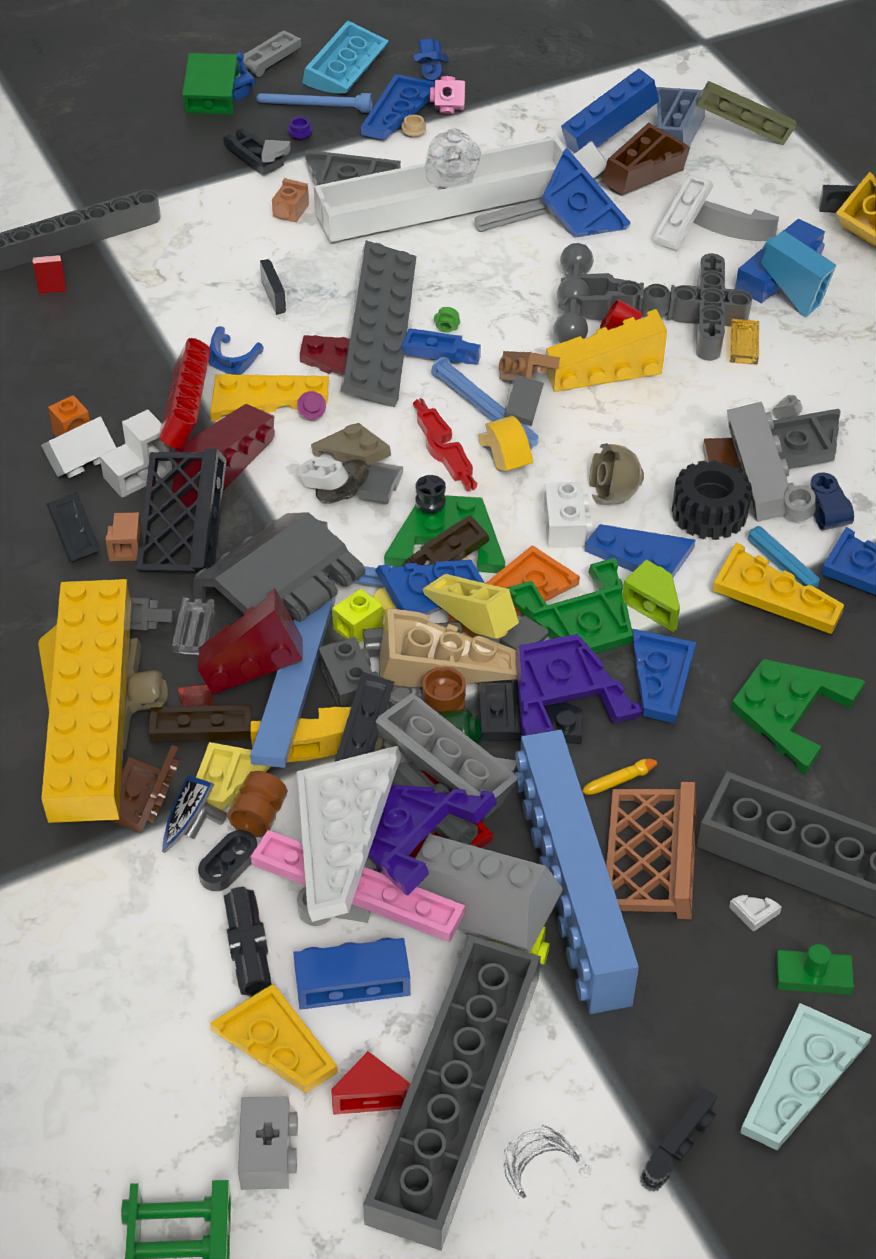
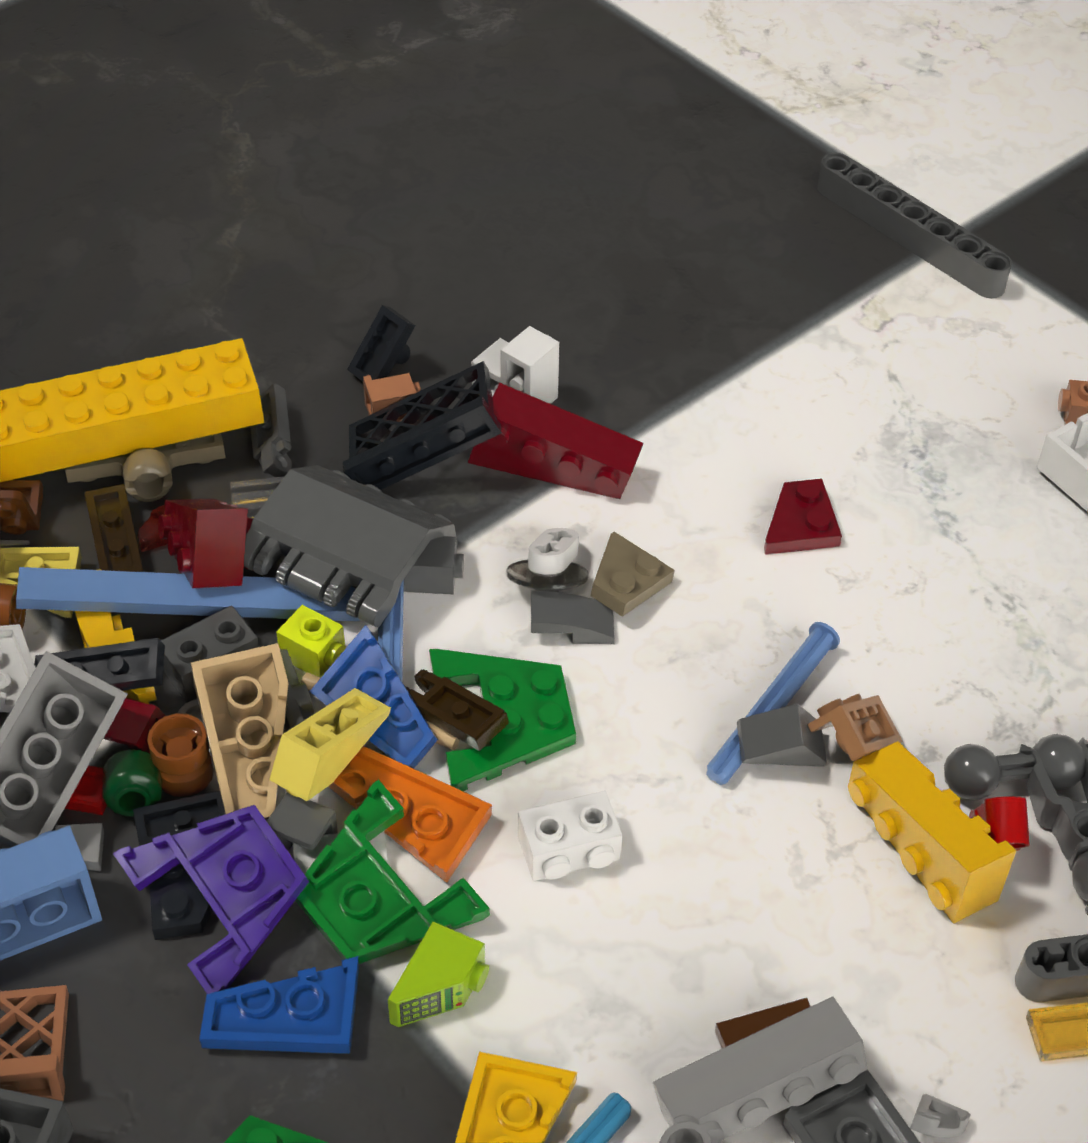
camera: 75 degrees right, 0 degrees up
(50, 274) = (819, 225): red slope -> none
(67, 415) = (562, 305): orange brick -> none
(78, 447) = (508, 314): white brick -> none
(185, 394) = (709, 376): red beam -> none
(230, 365) = (743, 405): blue helmet -> none
(262, 391) = (698, 468): yellow wing -> none
(273, 286) = (900, 425): black tile -> none
(311, 405) = (684, 515): magenta plate -> none
(379, 324) = (884, 549): dark grey plate -> none
(430, 494) = (546, 656): black wheel -> none
(437, 345) = (866, 626): blue hinge -> none
(447, 319) = (930, 624): bright green plate -> none
(449, 454) = (658, 685): red piece -> none
(507, 443) = (678, 734): yellow brick -> none
(615, 474) = (664, 882): dark tan cylinder -> none
(618, 777) = (110, 1014): yellow piece -> none
(635, 546) = (534, 954): blue wing -> none
(711, 499) = (660, 986): black tyre -> none

